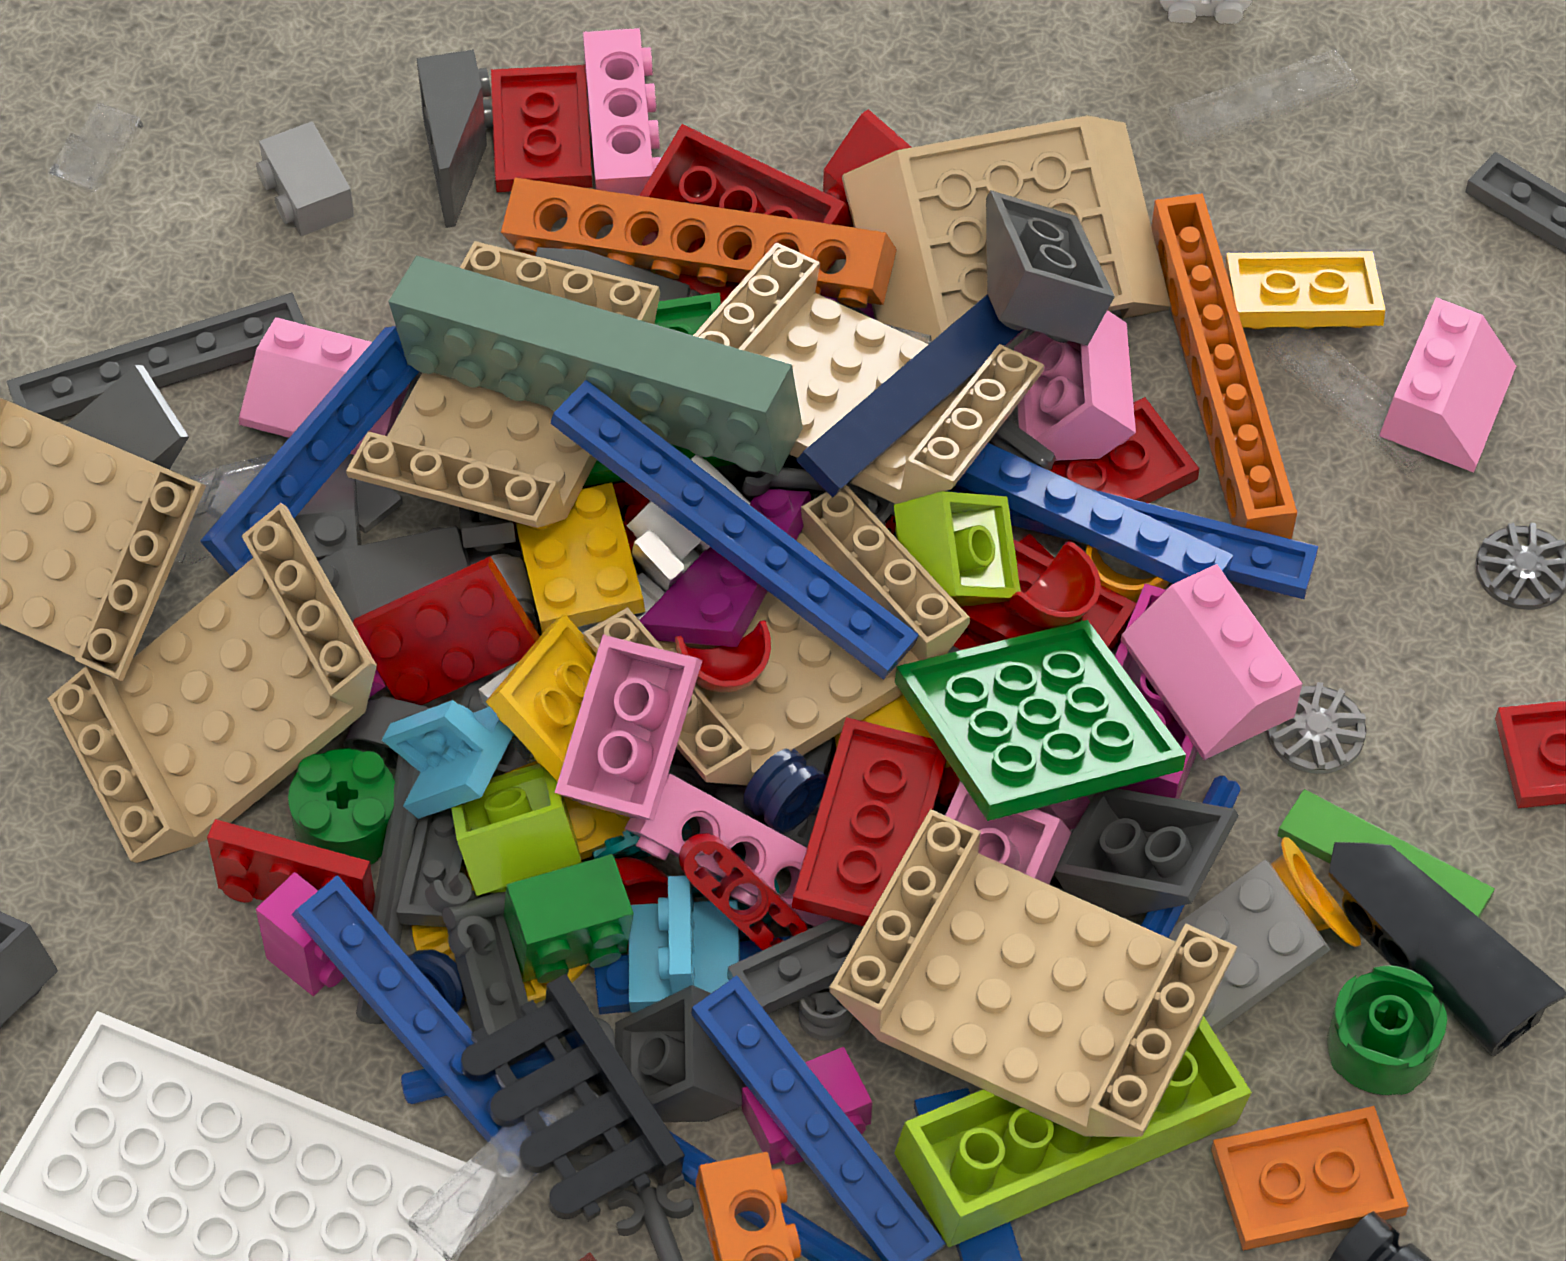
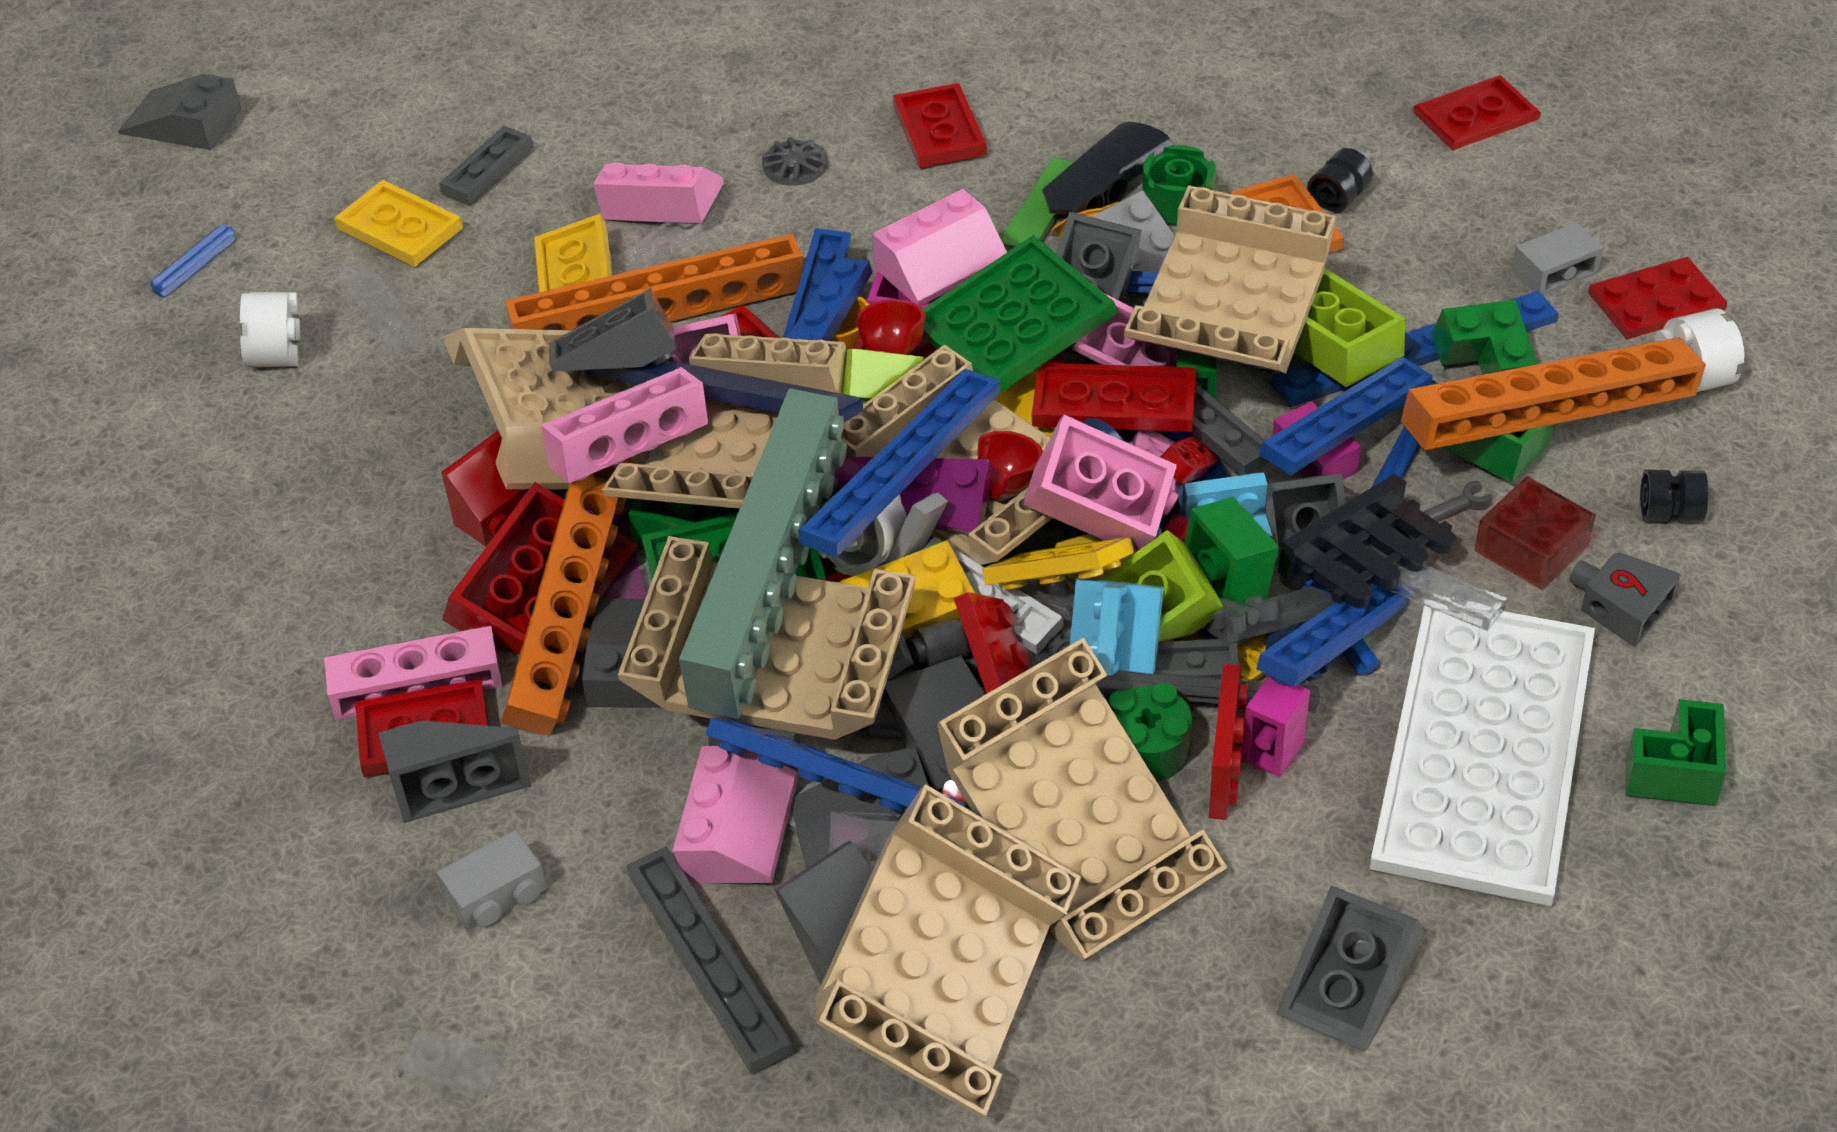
camera: 95 degrees left, 10 degrees down
(861, 257) = (624, 425): none -> bright pink brick
(1425, 113) = (398, 223): none -> yellow plate

